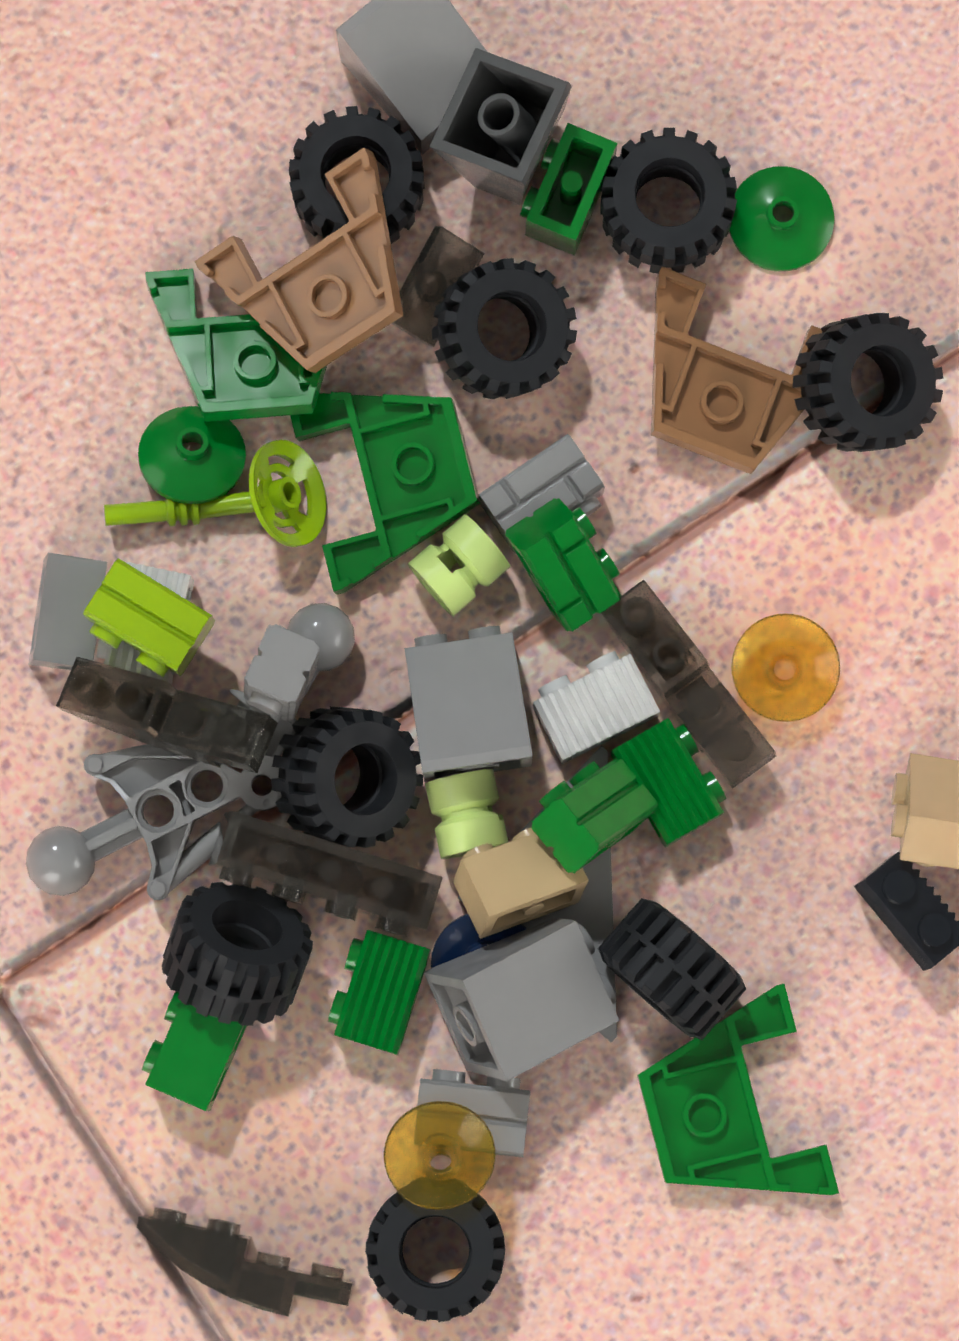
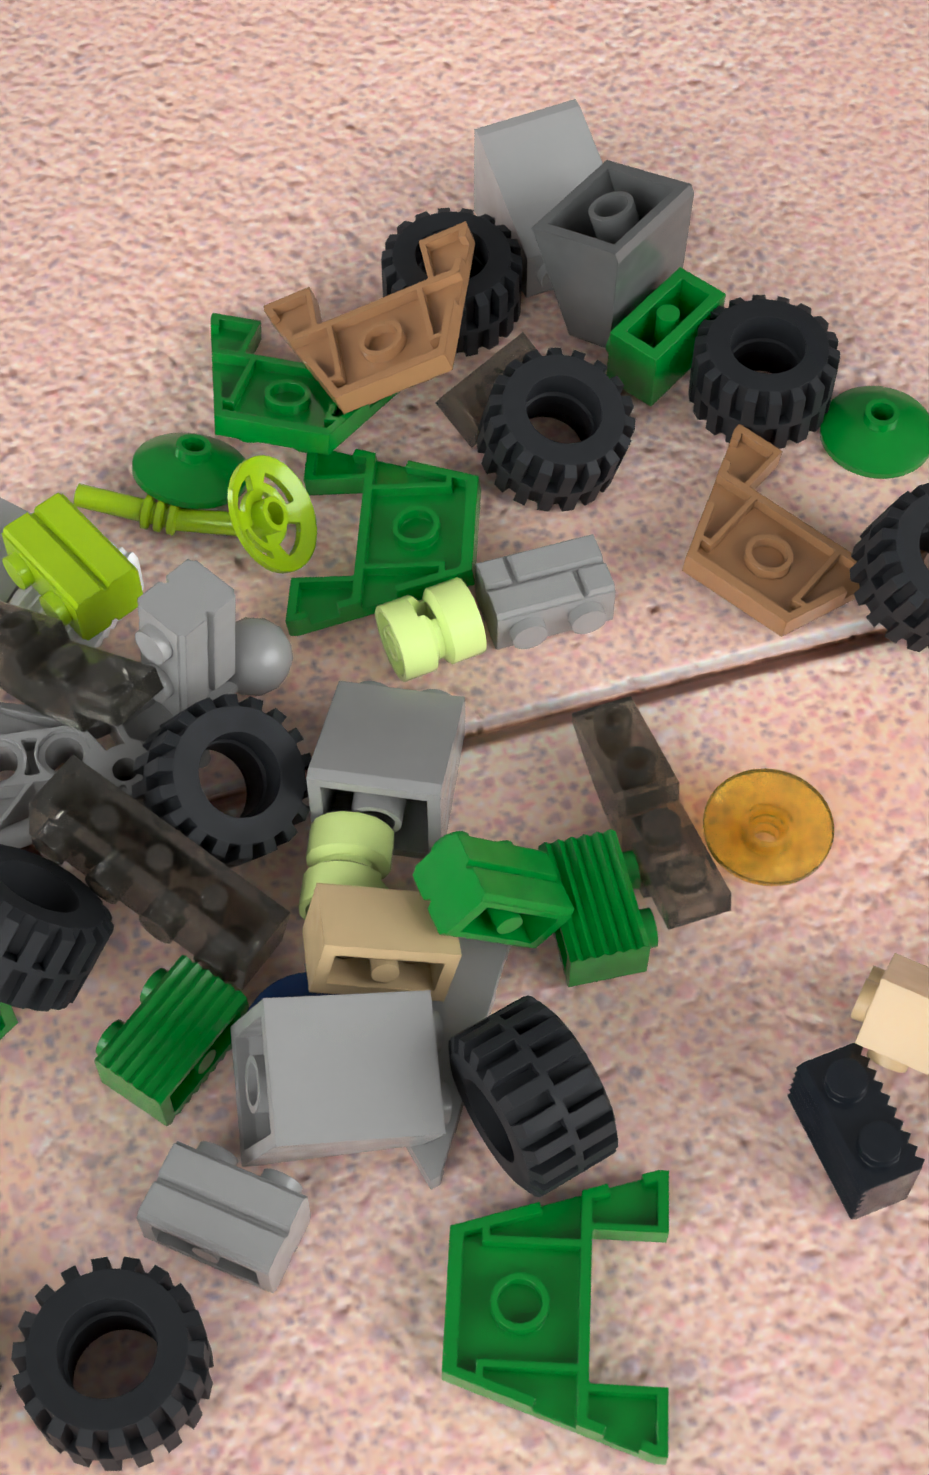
camera: 15 degrees right, 25 degrees down
(434, 1131) = (154, 1206): clear yellow dish -> none
(564, 564) = (548, 647): green brick -> none
(595, 706) = (535, 800): white brick -> none

